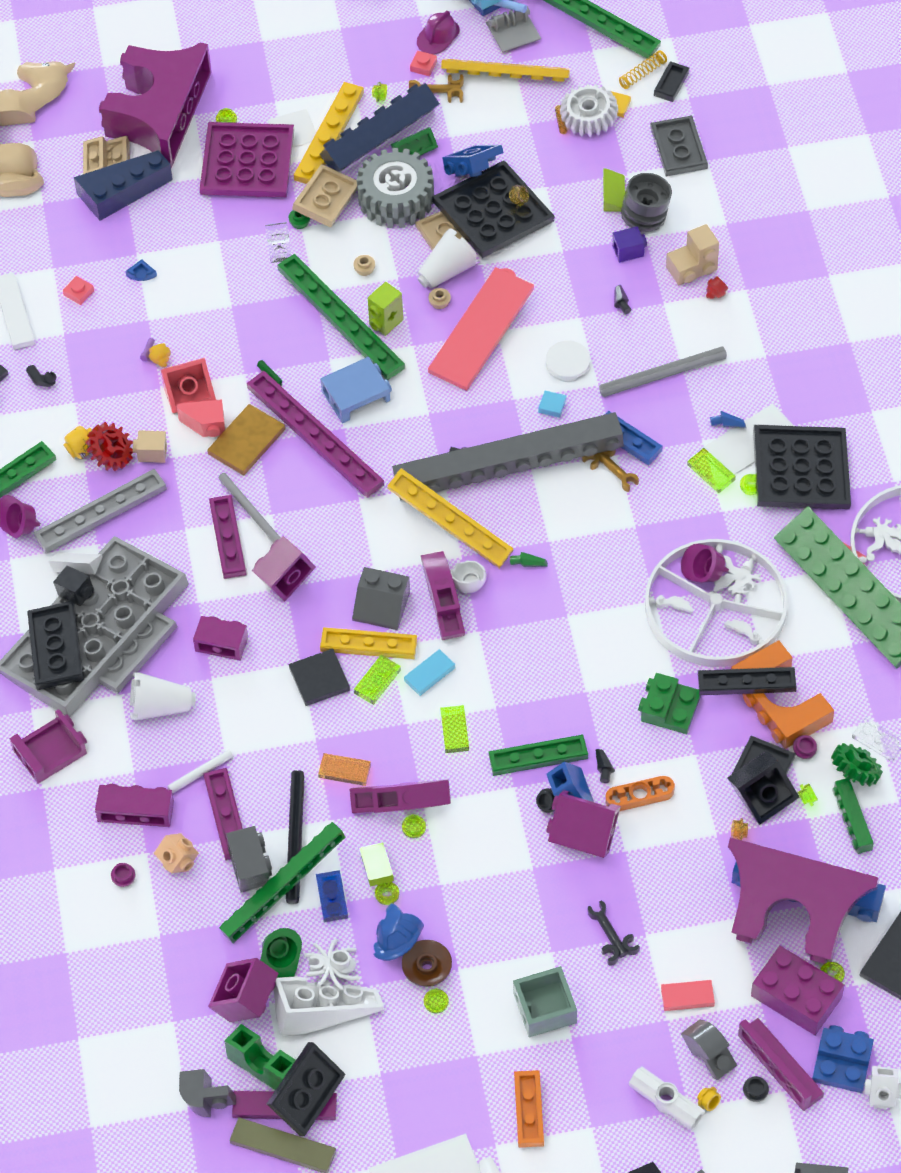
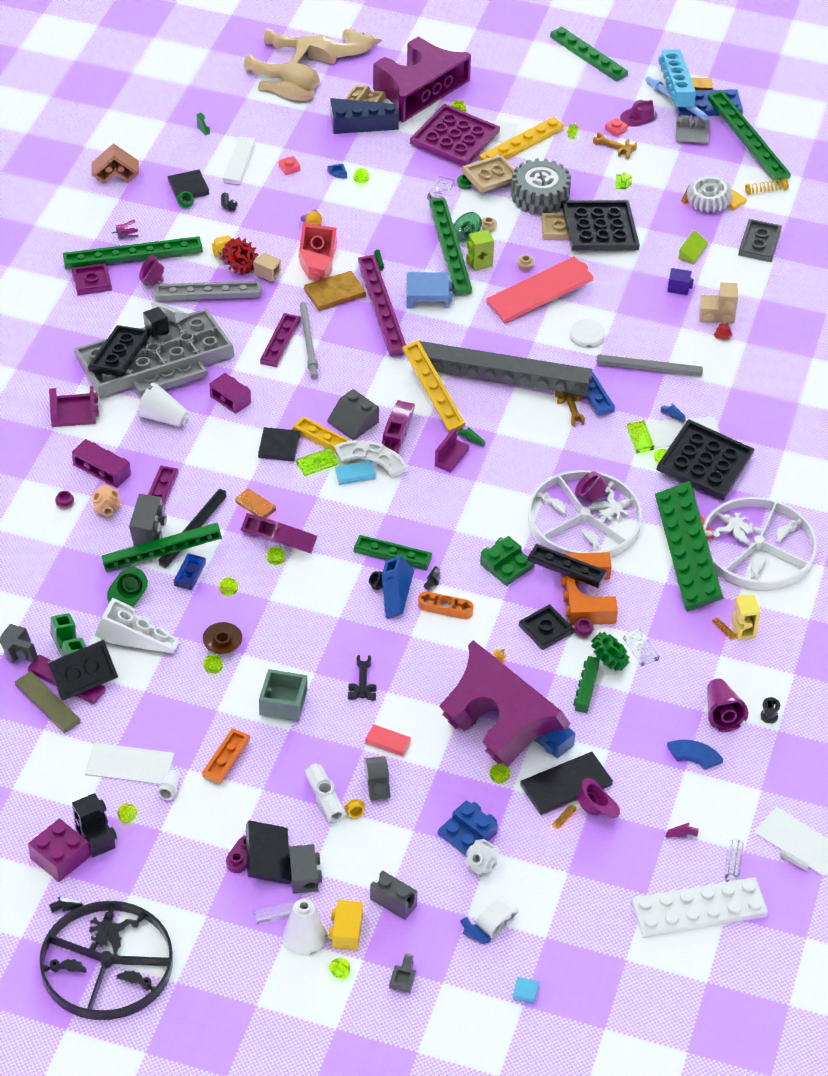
camera: 25 degrees right, 10 degrees down
(174, 266) = (361, 175): none -> clear neon green plate
(198, 772) = (156, 464): white bar -> none
(243, 990) = (86, 595): magenta brick -> none
(283, 568) = (298, 367): brick -> none
(337, 963) = (162, 610): white animal -> none
(339, 276) = (467, 224): none -> clear green dish
(376, 864) = (232, 566): tile -> none
(379, 128) = (558, 148): dark blue brick -> none
(396, 933) = (214, 609): blue helmet -> none
(418, 142) = (577, 169): green plate -> none
(438, 637) = (372, 452): none -> white tile
(446, 260) = (544, 240): white cone -> none
(454, 729) = (347, 512): clear neon green tile -> none
(468, 576) = (422, 427): white hair -> none
(471, 160) = (601, 190): blue plate -> none
(478, 135) = (623, 181): none -> clear neon green piece
(496, 68) = (675, 153): yellow plate -> none
(519, 195) = (621, 221): clear yellow plate -> none
(521, 595) = (450, 452): none -> magenta panel
(552, 404) = (557, 353): medium azure tile -> none
(582, 824) = (388, 601): magenta panel -> none
(621, 300) = (651, 313): bar -> none
(646, 202) = (708, 259): dark grey wheel -> none
(671, 81) = (782, 201): black tile -> none
(755, 1089) = (393, 817): black plate -> none
(763, 787) = (532, 636): black slope -> none
(780, 1063) = (422, 810): magenta fence -> none
(797, 990) = (466, 769): magenta brick -> none
(807, 794) = (562, 656): clear neon green plate -> none

